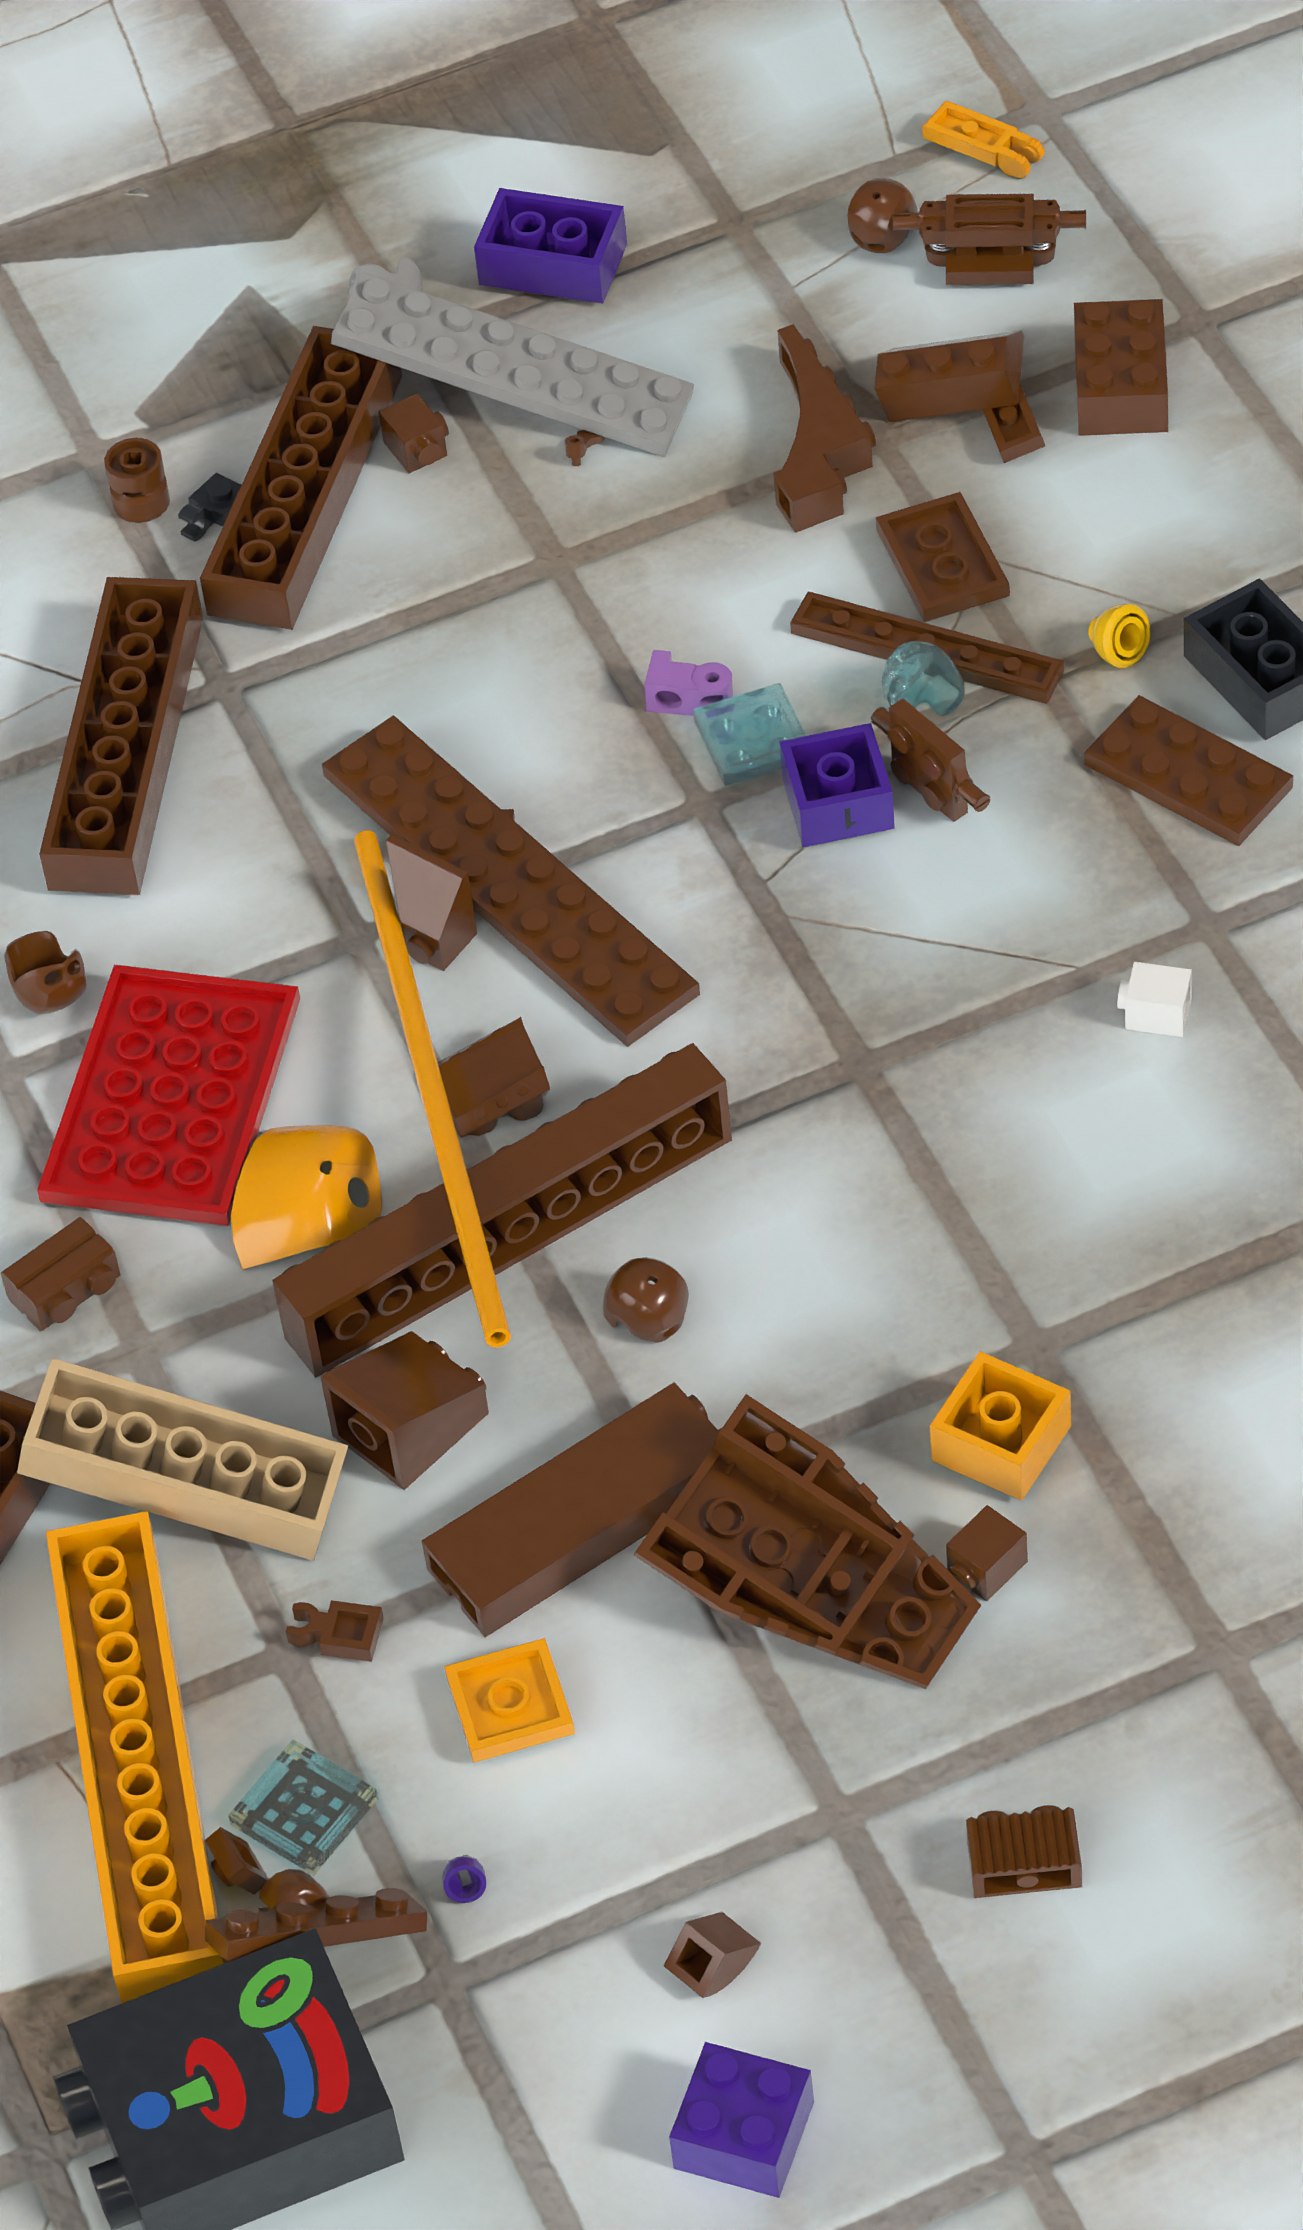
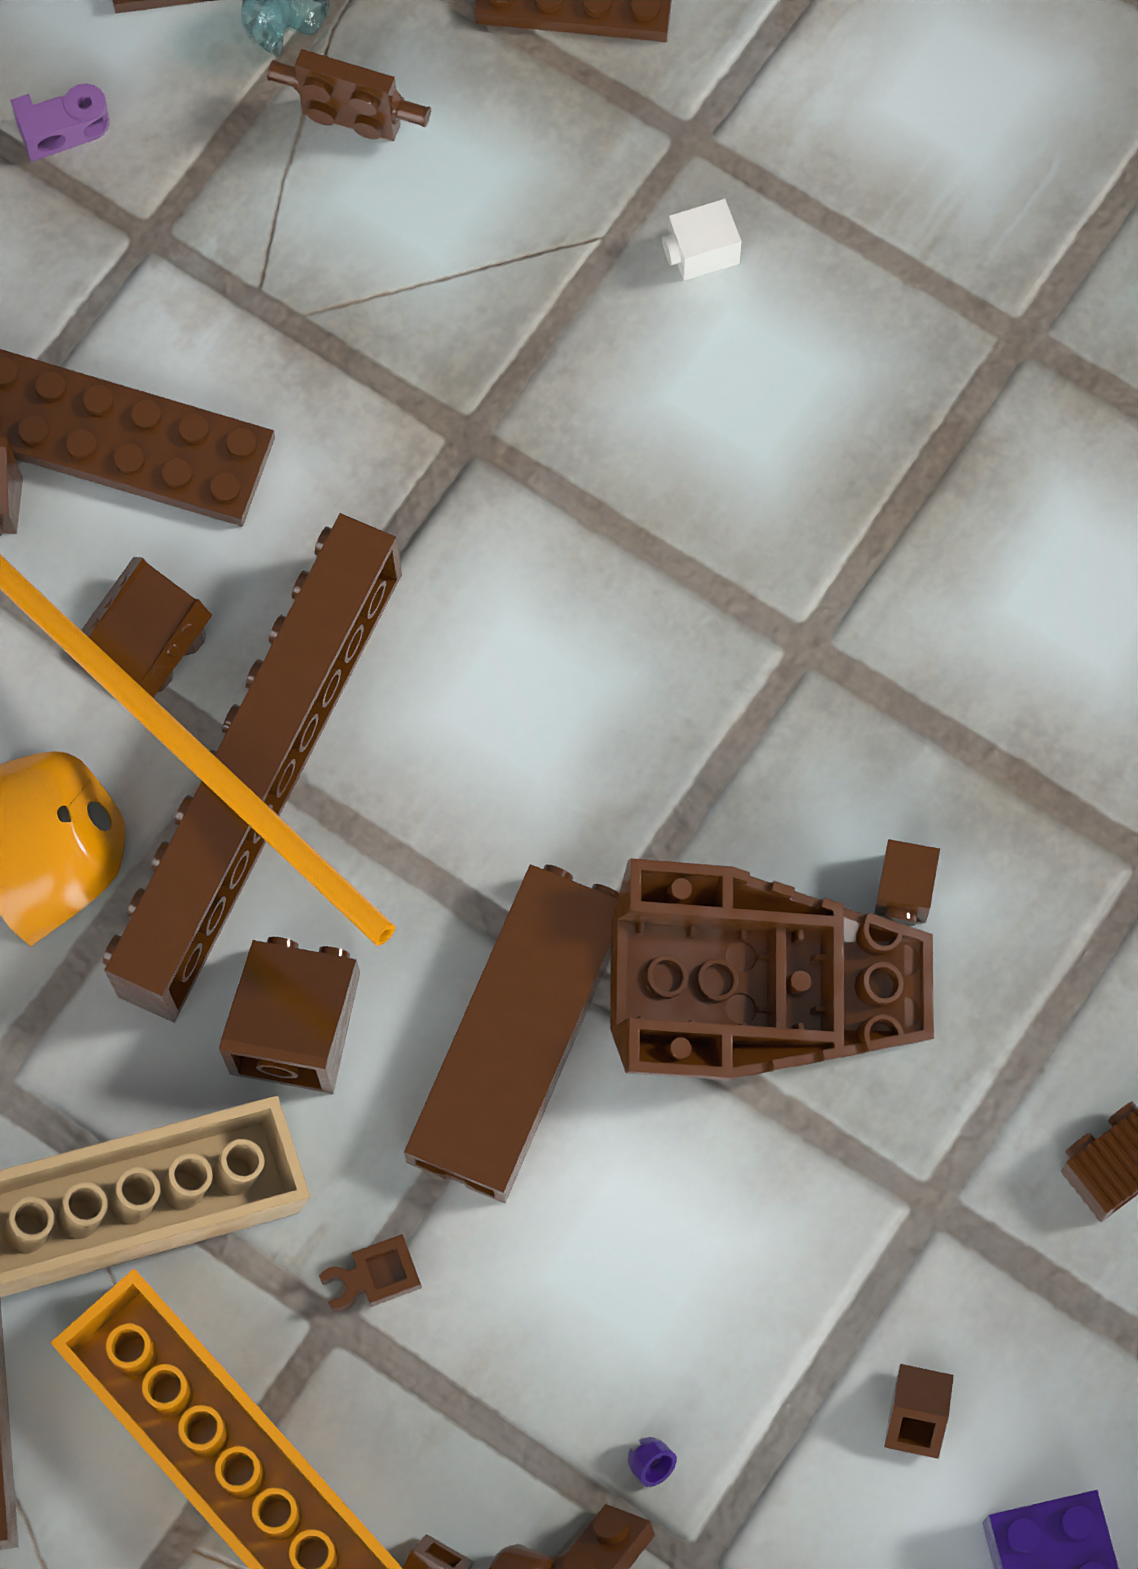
camera: 35 degrees left, 20 degrees up
(303, 1807) = (455, 1469): clear light blue tile -> none
(509, 1700) = (576, 1260): light orange plate -> none
(644, 1308) = (427, 795): reddish brown helmet -> none
(746, 732) = (154, 141): clear light blue plate -> none
(837, 785) = (276, 161): dark purple brick -> none
(1000, 1425) = (845, 750): light orange brick -> none

